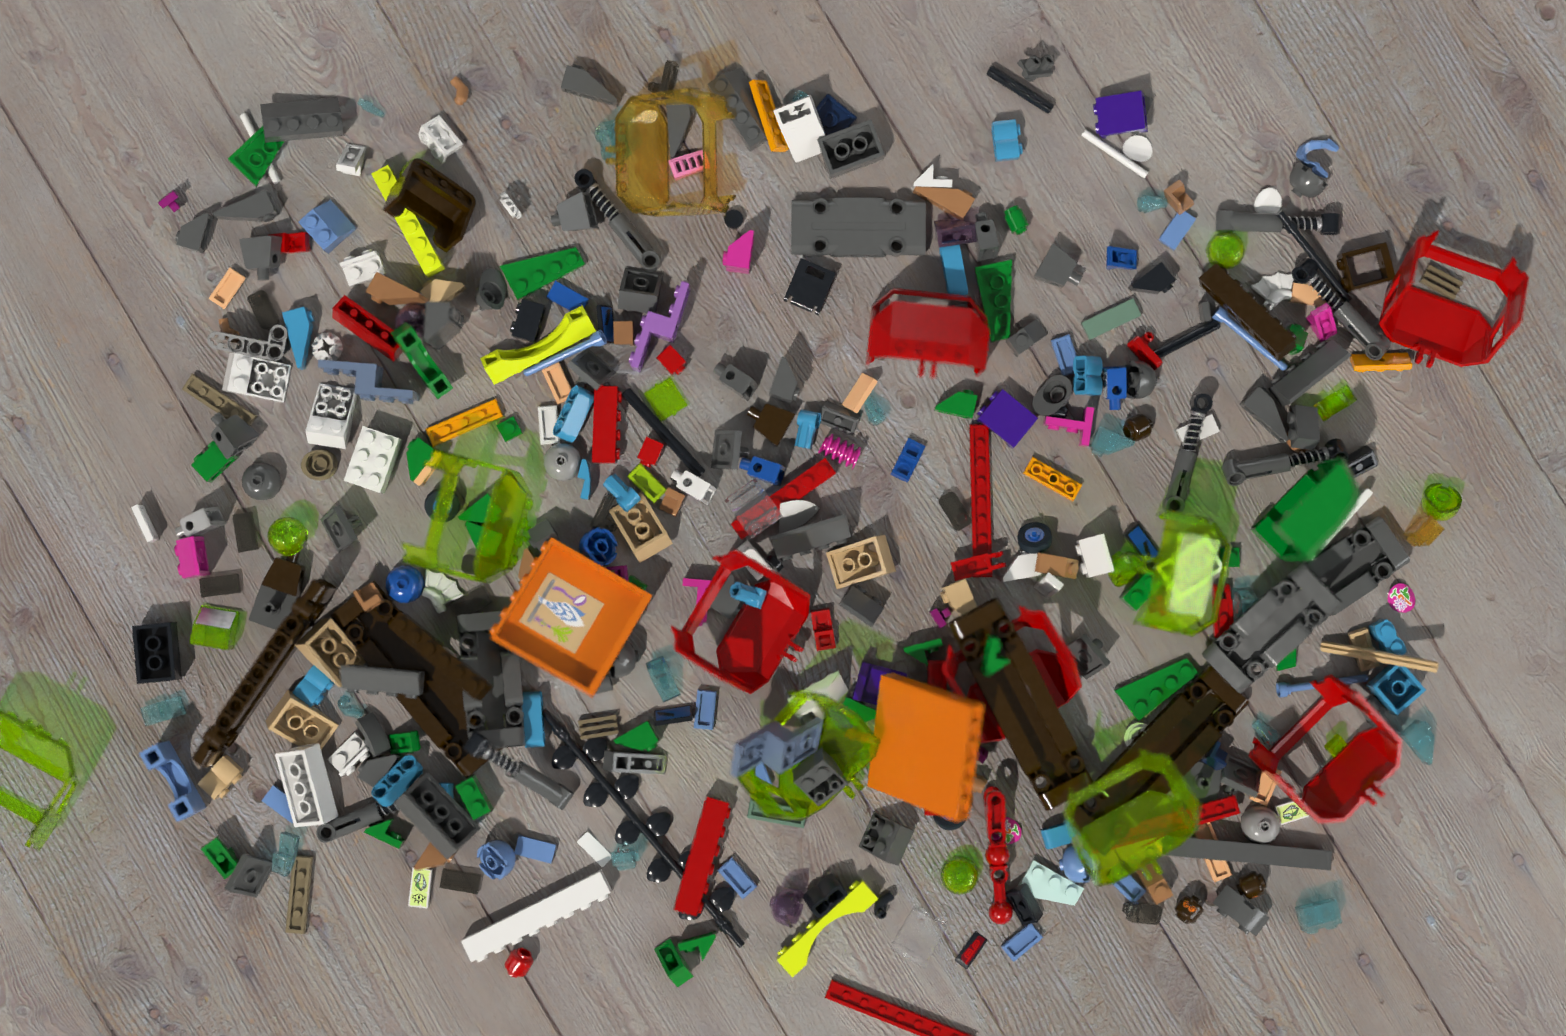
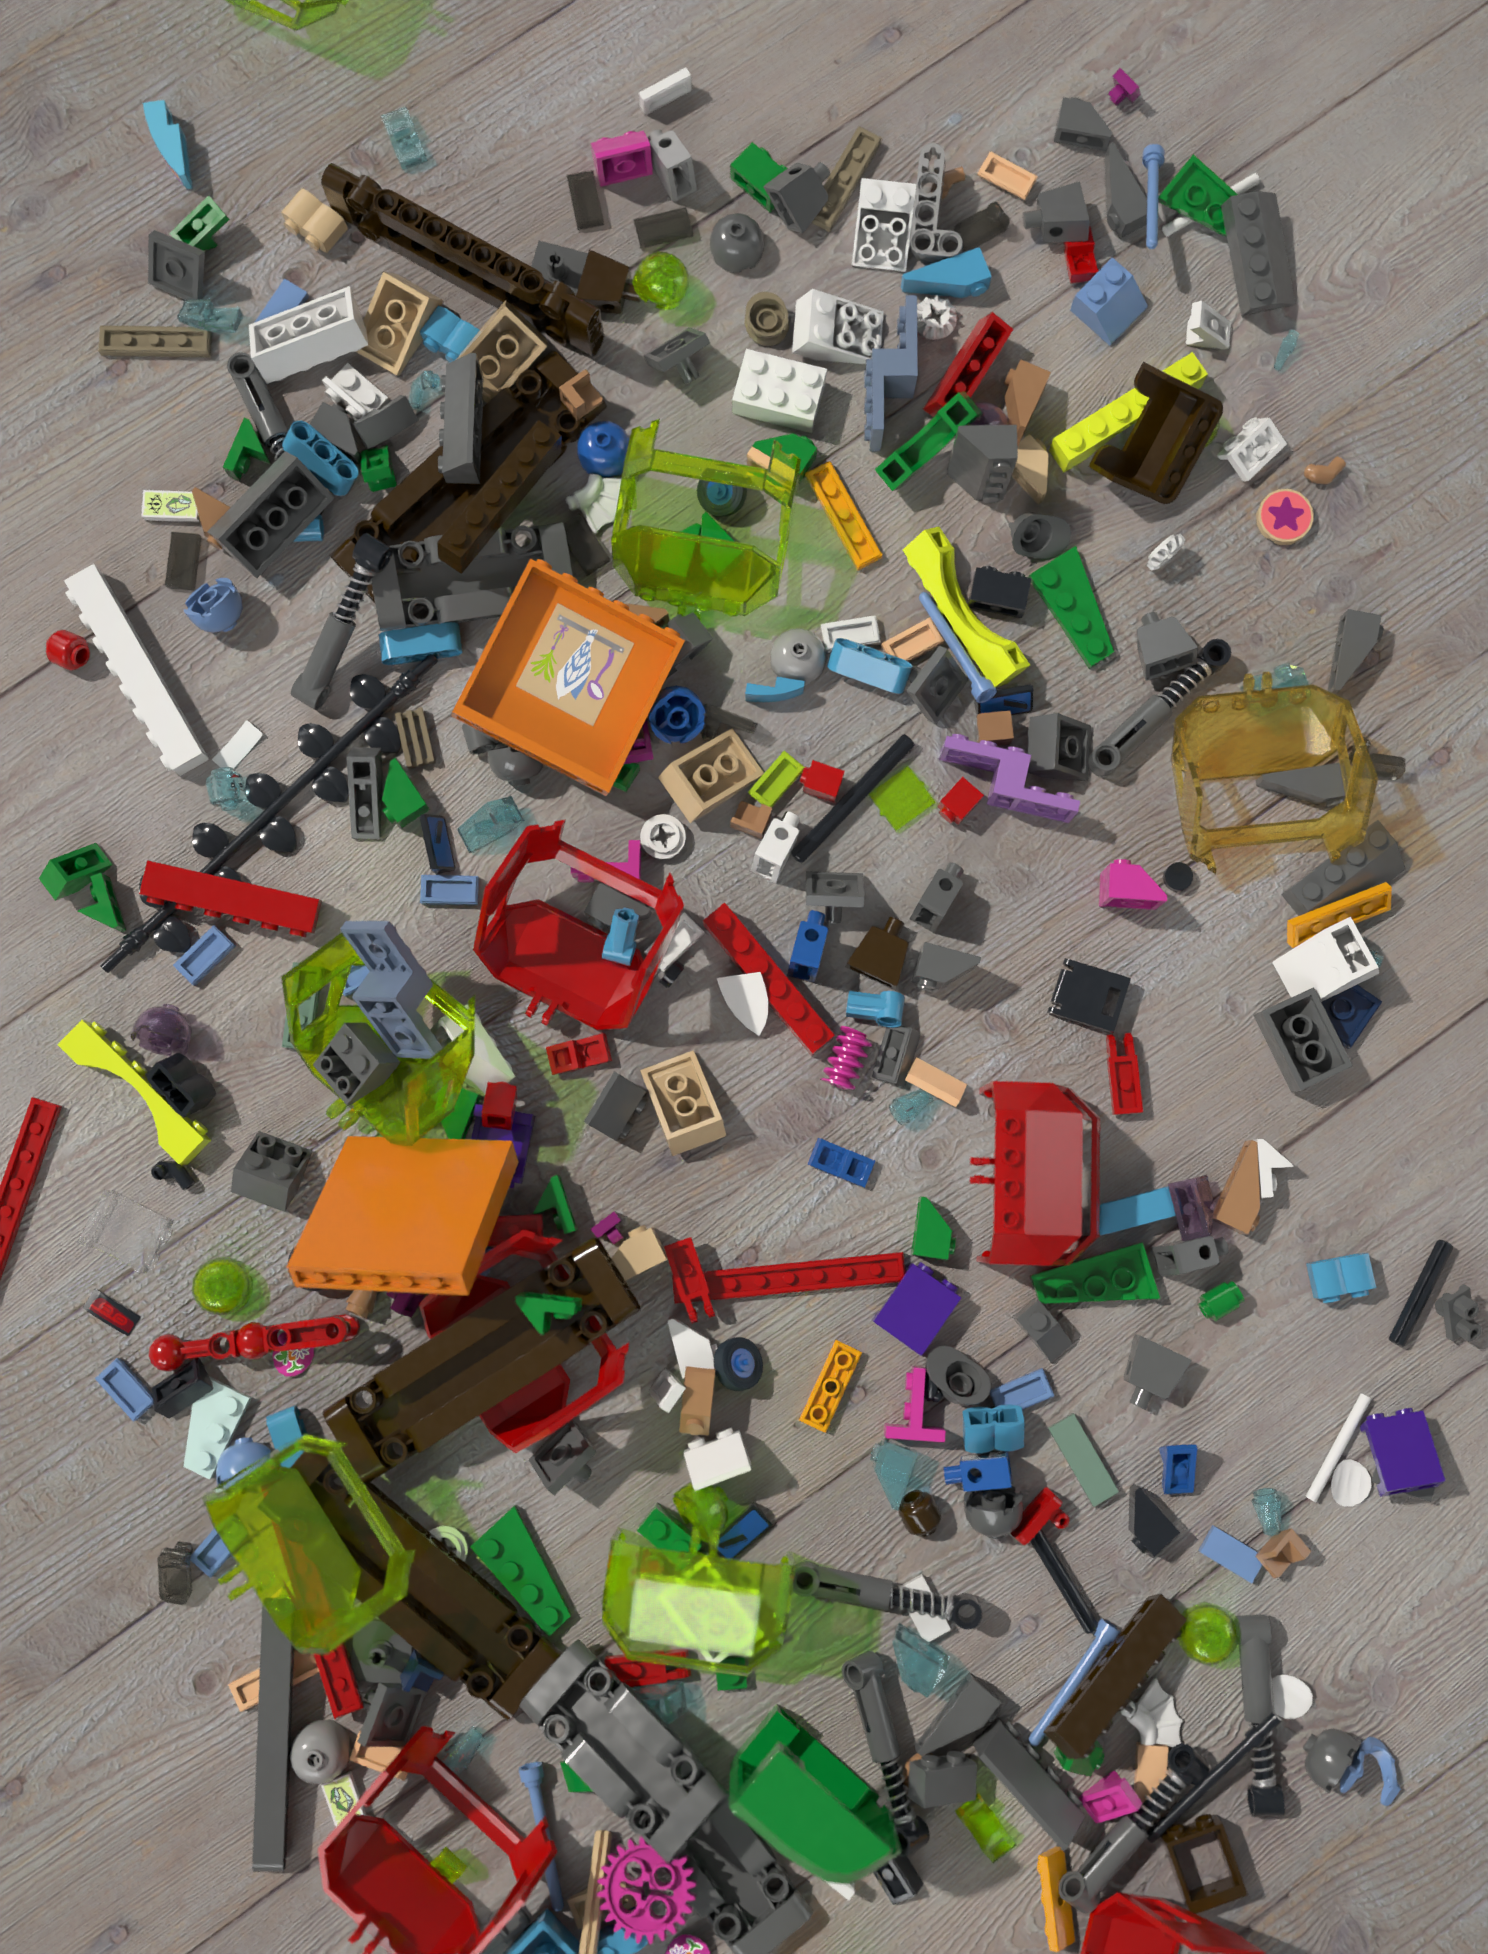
camera: 90 degrees right, 5 degrees down
(152, 877) = (169, 140): none -> medium azure slope
(156, 652) = (483, 119): black brick -> none
(165, 759) = (334, 144): medium blue arch -> none
(215, 628) = (523, 196): clear neon green slope -> none
(224, 185) = (1153, 159): none -> medium blue piece
(362, 268) = (1055, 354): white bracket -> none
(474, 797) = (302, 568): green brick -> none
(489, 121) = (1284, 516): none -> tile
(509, 429) = (839, 579): green plate -> none
(535, 849) = (233, 662): medium blue tile -> none
(566, 297) = (1039, 644): blue tile -> none
(606, 425) = (857, 713): red brick -> none
(624, 495) = (758, 744): dark azure piece -> none
(672, 557) = (670, 826): none -> white gear
(679, 160) = (1257, 792): bright pink slope -> none
(753, 508) = (750, 934): clear panel -> none
(811, 536) = (714, 1023): dark grey slope -> none
(856, 682) = (499, 1105): none -> red brick
(858, 227) = (1185, 1061): dark grey panel -> none
(865, 269) = (1123, 1077): none -> red hinge
(954, 511) = (770, 1239): clear smoke piece -> none
(1157, 887) = (213, 1596): medium nougat slope -> none
(1189, 909) = (183, 1646): dark brown head -> none
(1204, 312) = (1107, 1607): dark grey tile -> none
(1229, 436) = (918, 1661): none -> clear light blue slope
(1240, 910) = (184, 1729): dark grey brick -> none
(1251, 885) = (225, 1744): dark brown head -> none
(1318, 915) = (182, 1856): clear light blue brick -> none
(1375, 622) = (643, 1919): none -> dark pink gear

